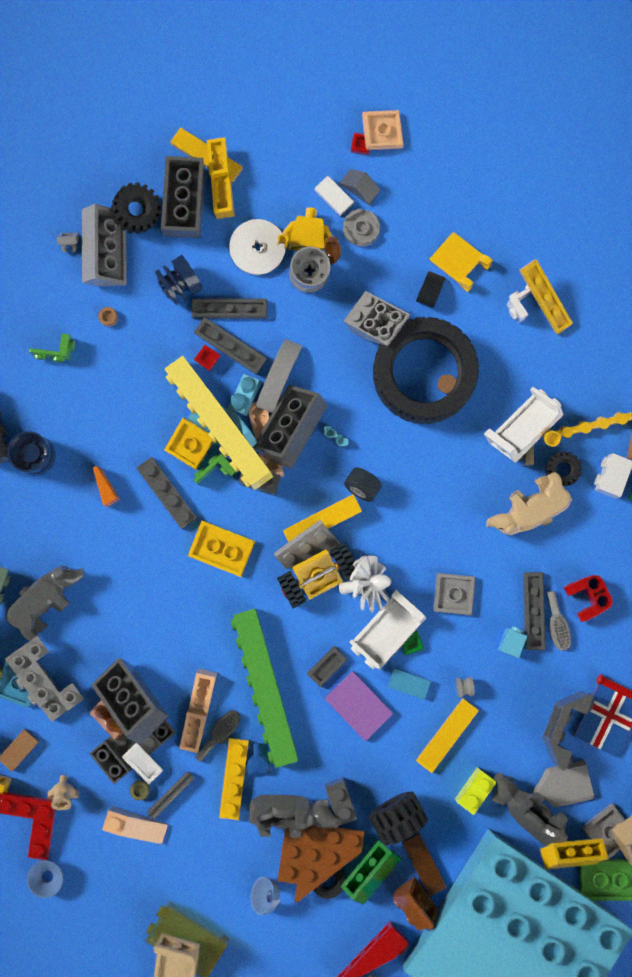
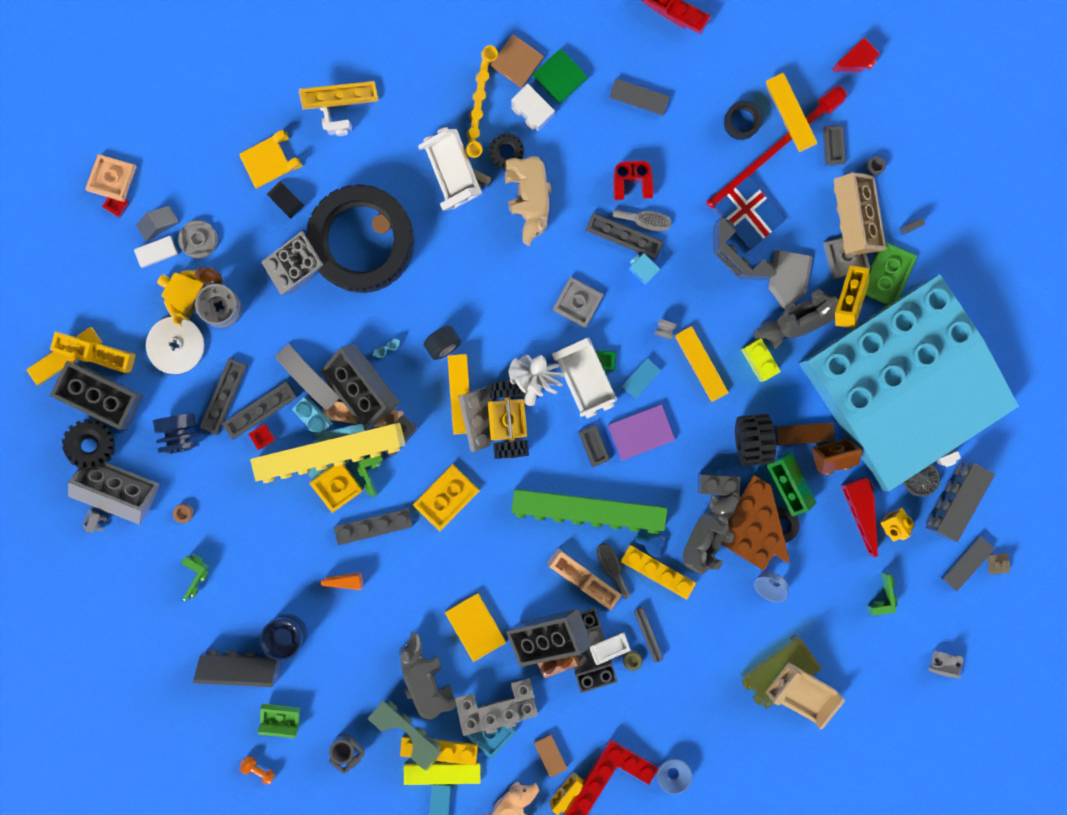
camera: 70 degrees left, 5 degrees up
(62, 794) = (606, 732): tan piece -> none
(111, 627) = (475, 627): none -> yellow tile
(134, 826) = (662, 678): light nougat slope -> none

